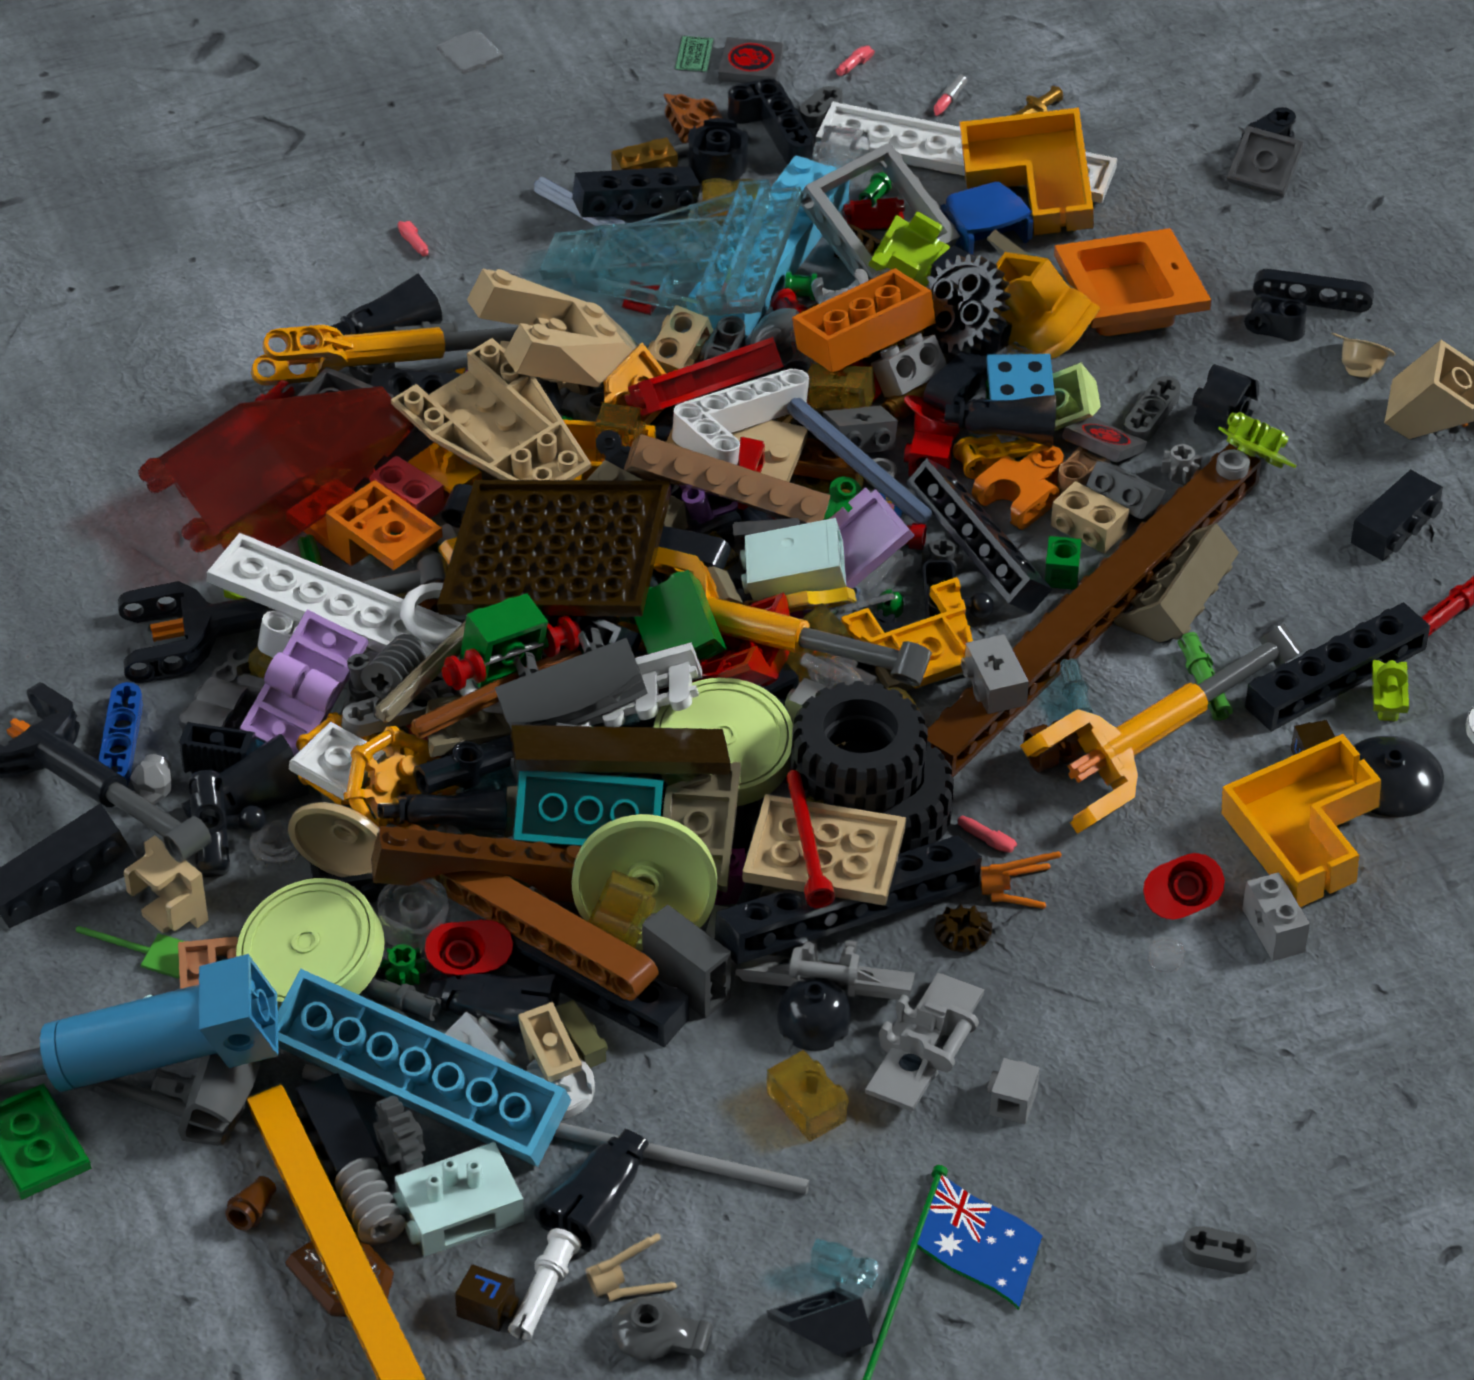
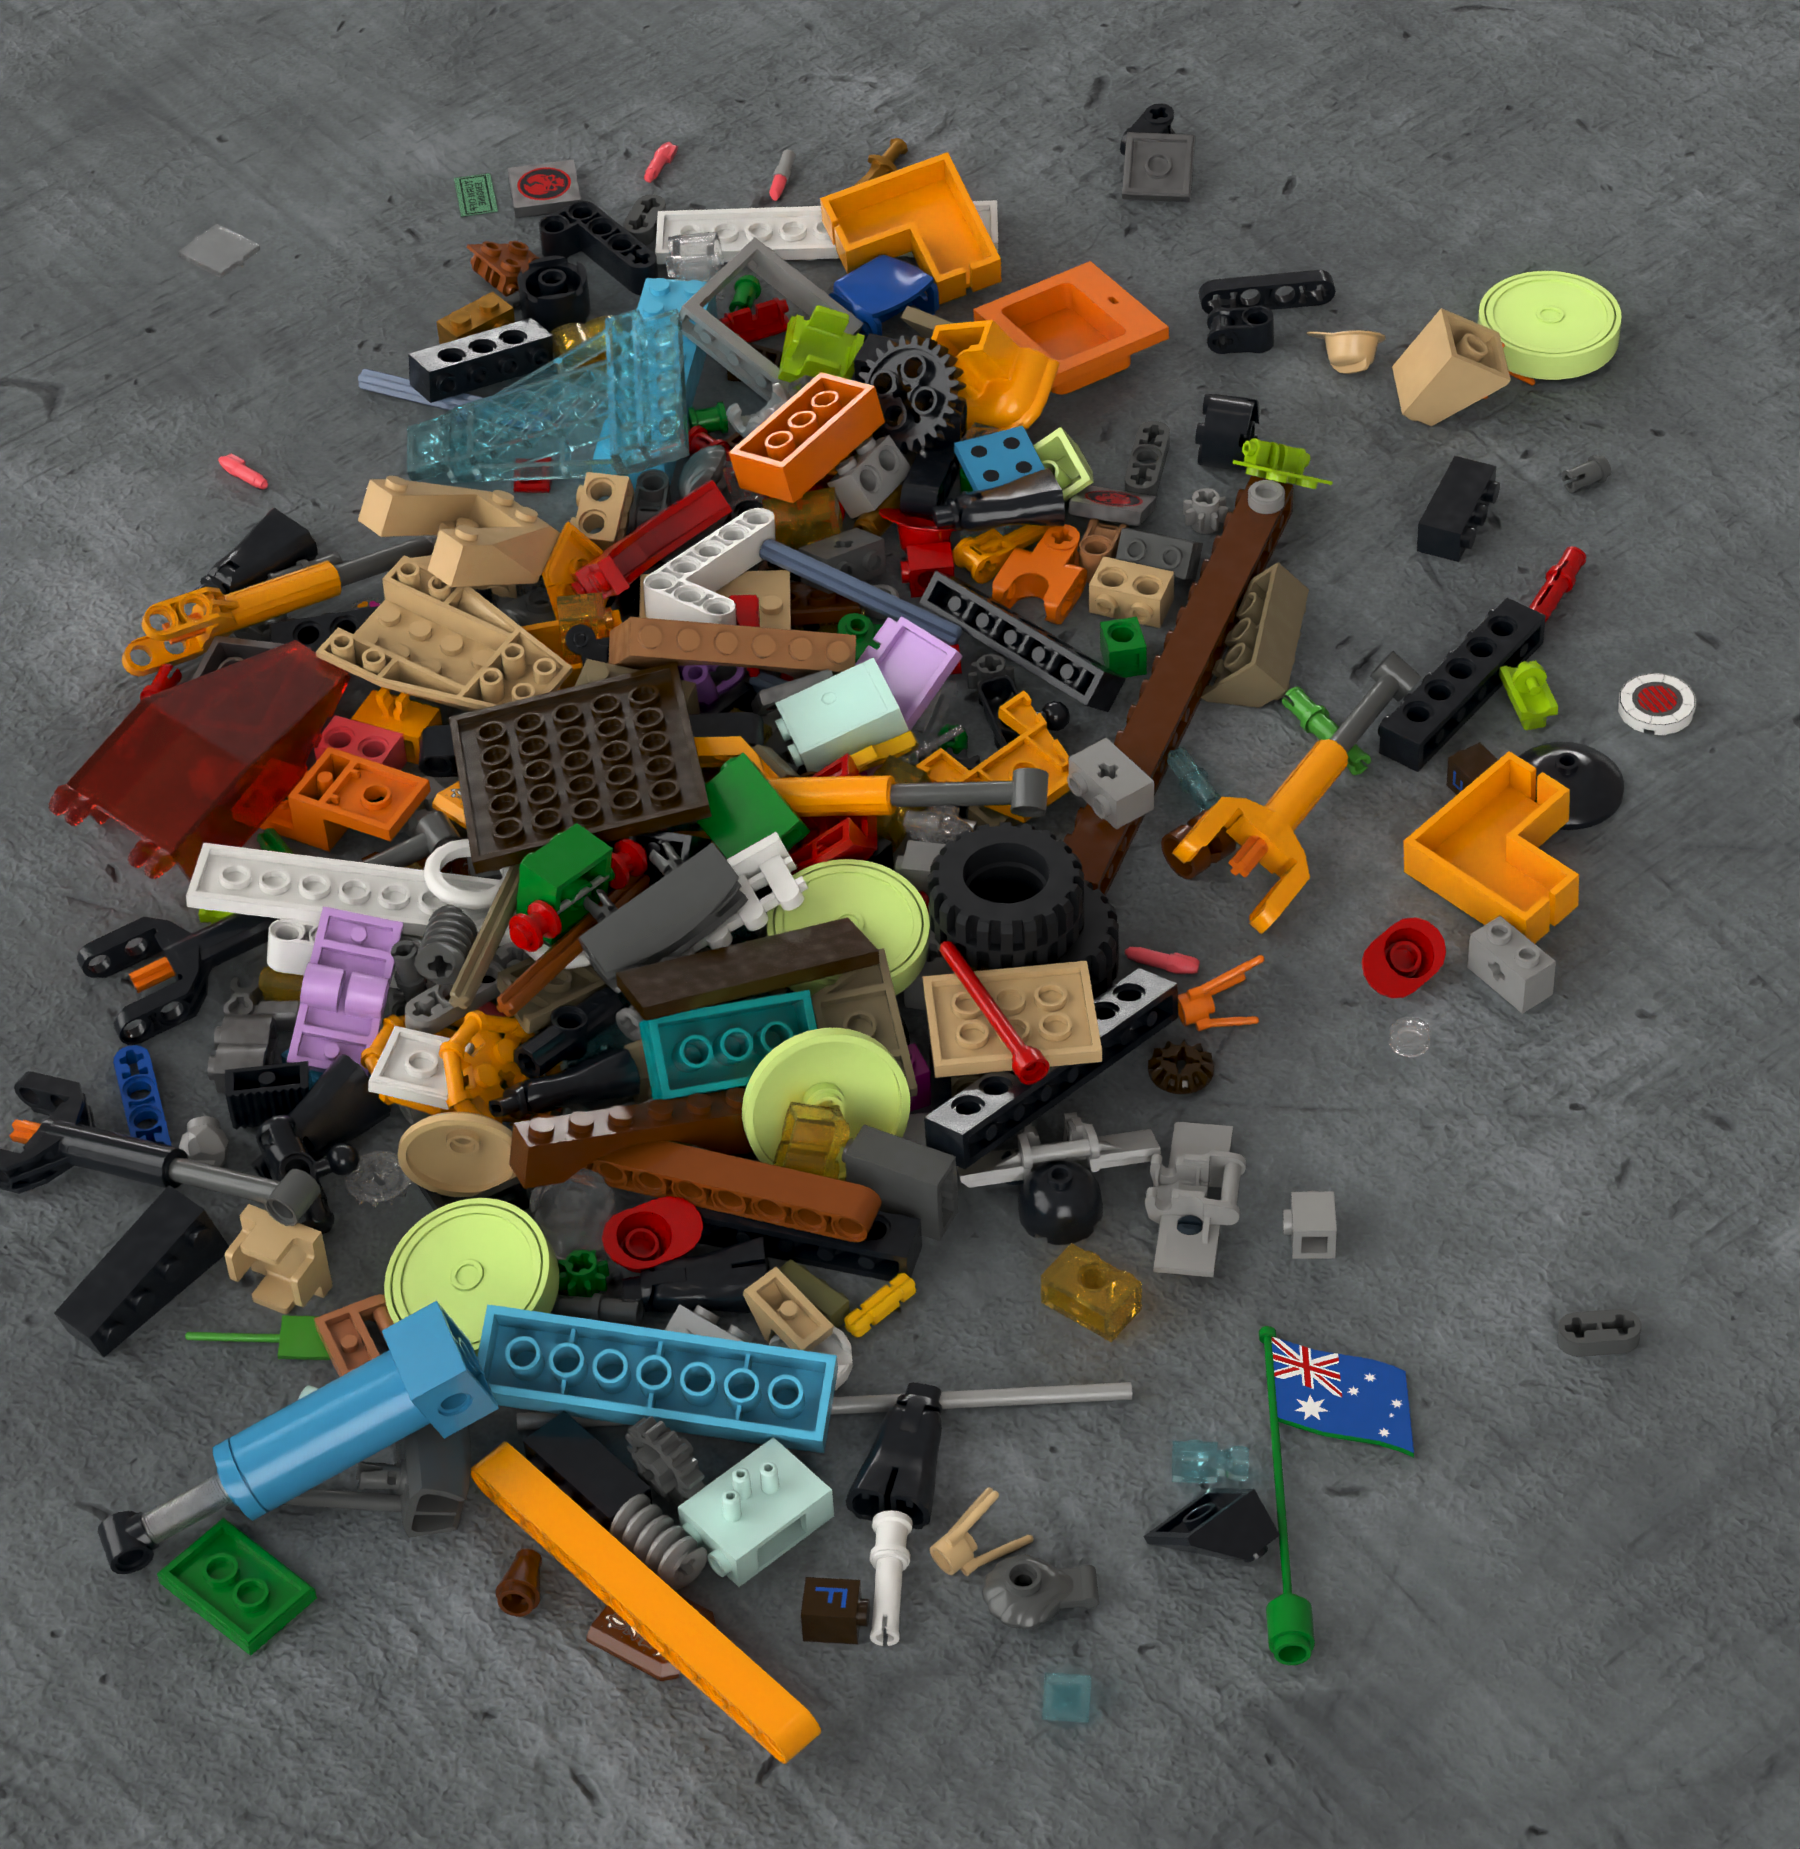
camera: 15 degrees left, 0 degrees up
(632, 1057) = (880, 1305): none -> yellow axle

